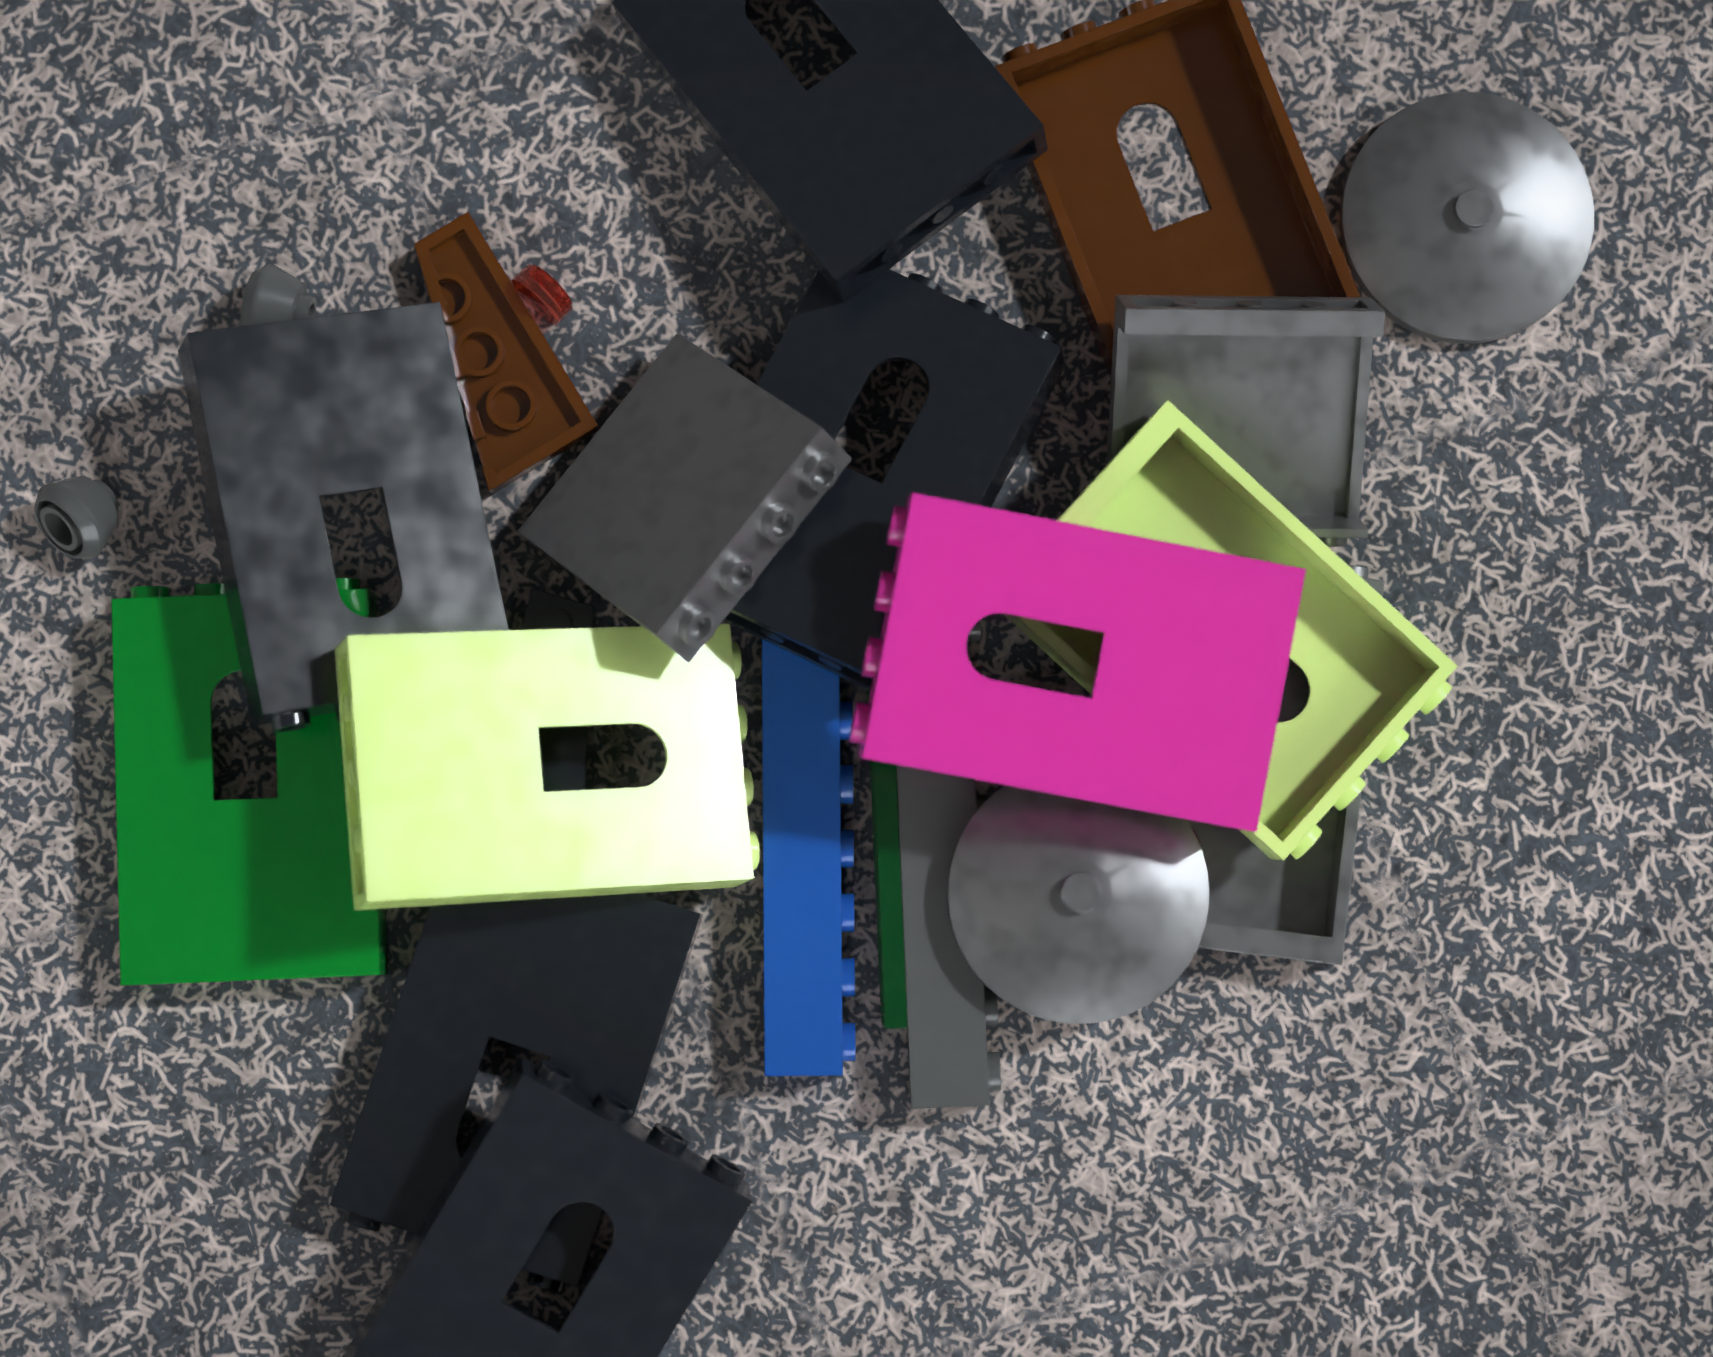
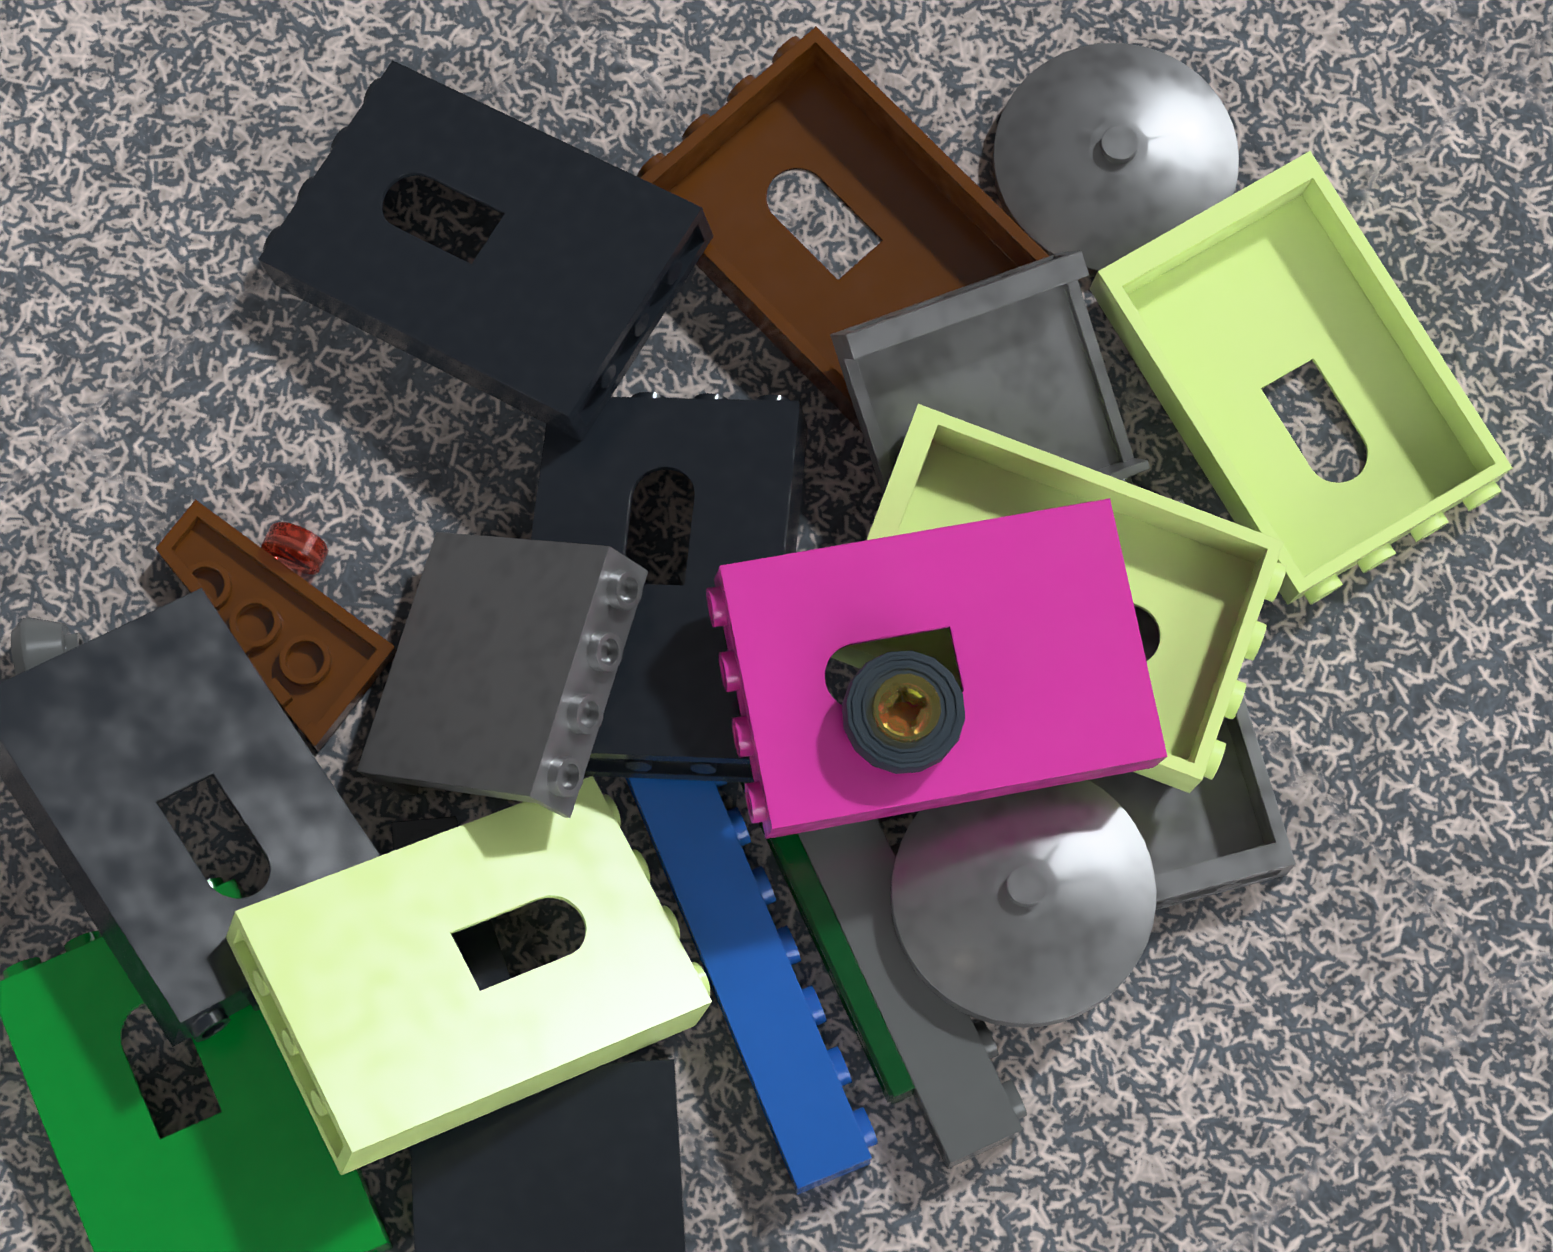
camera: 25 degrees left, 10 degrees down
(1001, 697) = (881, 722): none -> black wheel
(1533, 410) = (1254, 296): none -> yellowish green panel

